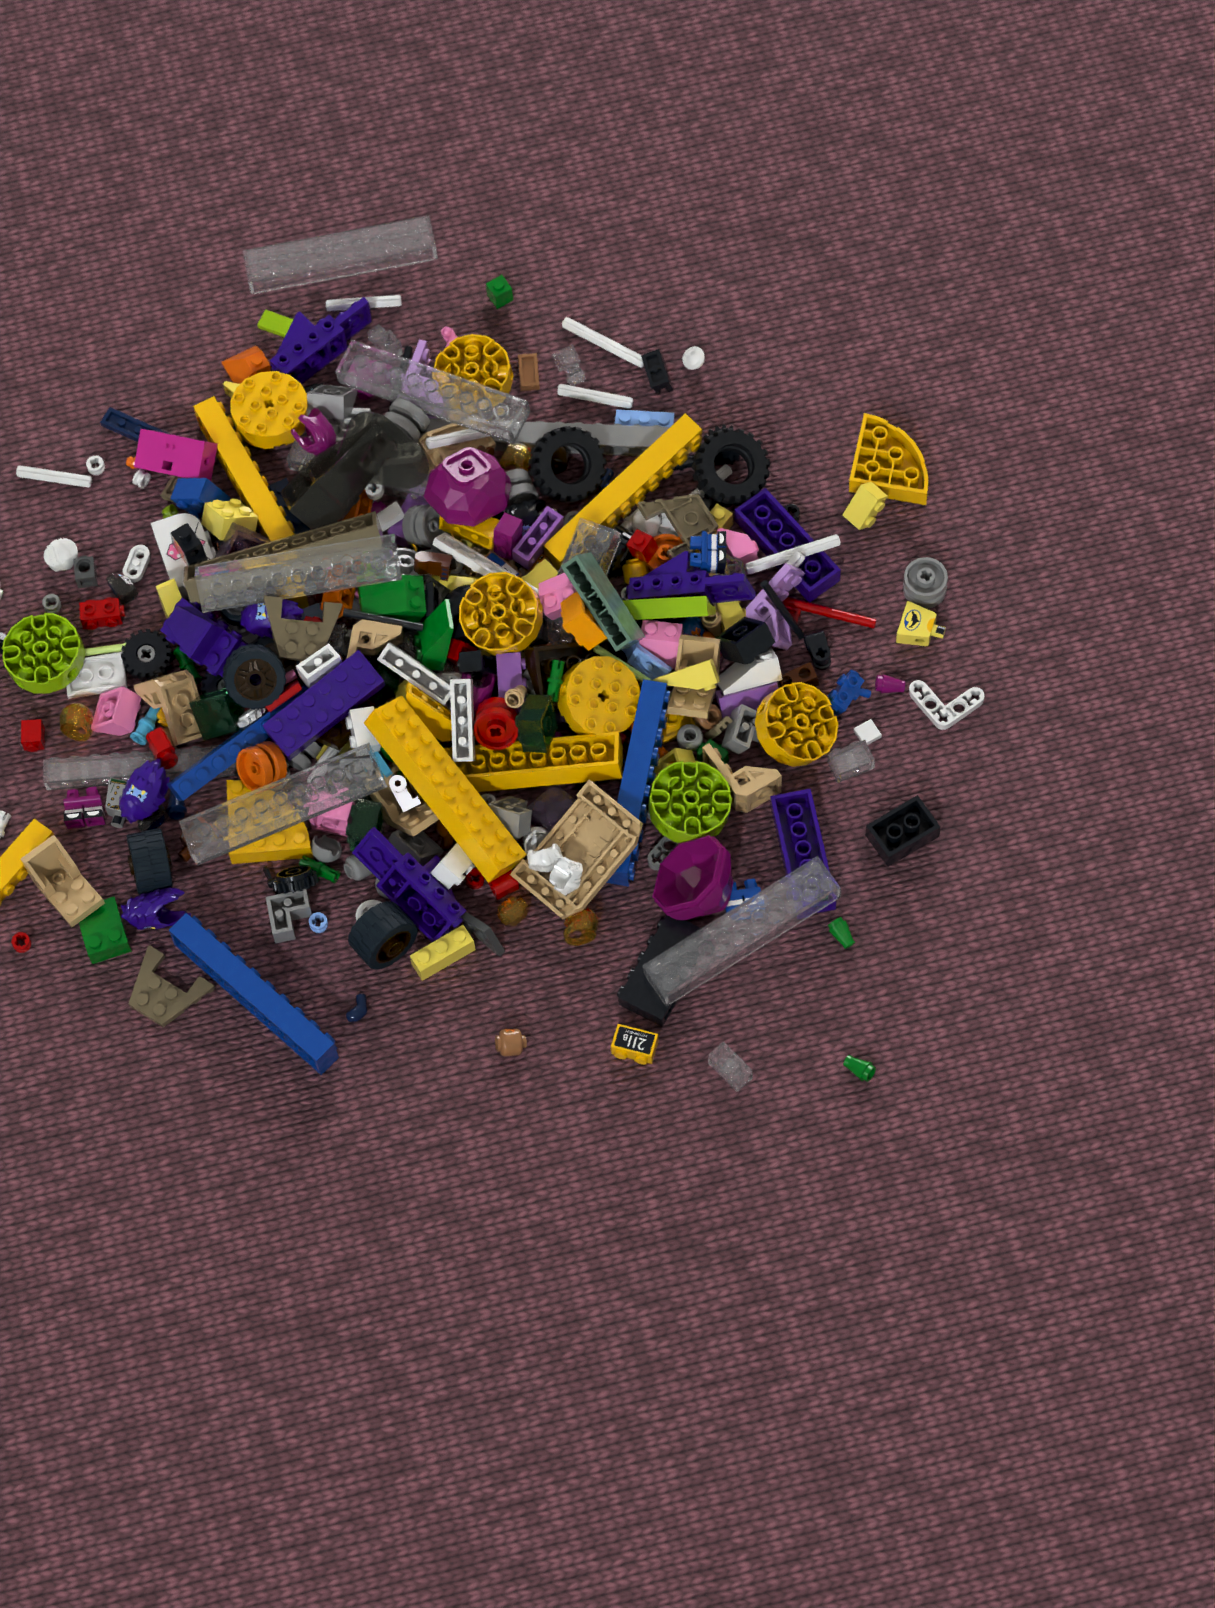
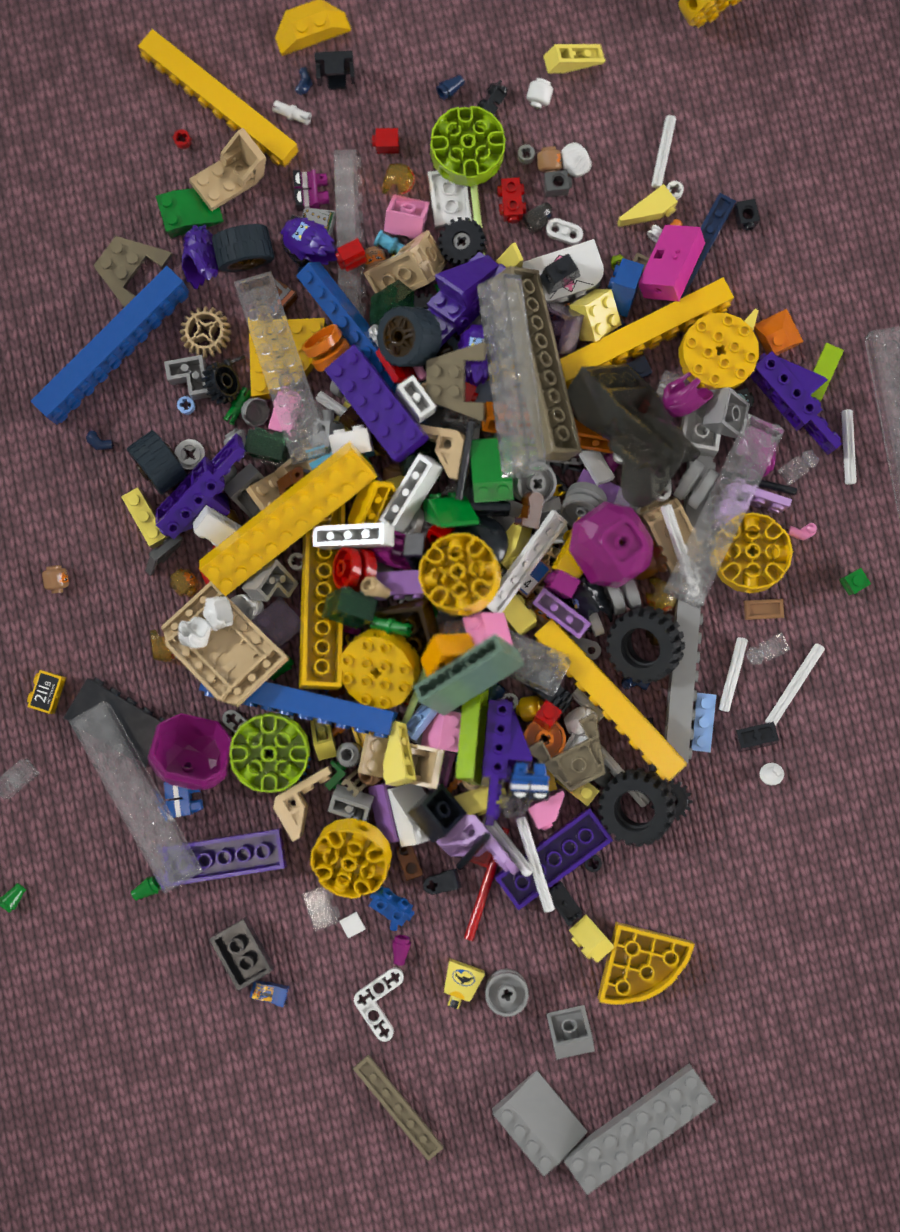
camera: 90 degrees right, 20 degrees up
(60, 579) = (549, 159): none -> medium nougat head
(111, 480) = (651, 208): none -> light yellow slope
(119, 392) = (750, 208): none -> black brick
(250, 893) = (211, 327): none -> tan gear
(844, 532) = (565, 903): none -> black hinge
(943, 803) = (269, 992): none -> blue leg
(961, 525) = (570, 1032): none -> light grey slope
(1050, 680) = (398, 1107): none -> dark tan plate
(1051, 461) = (638, 1128): none -> light grey brick
(1054, 551) = (539, 1122): none -> light grey slope

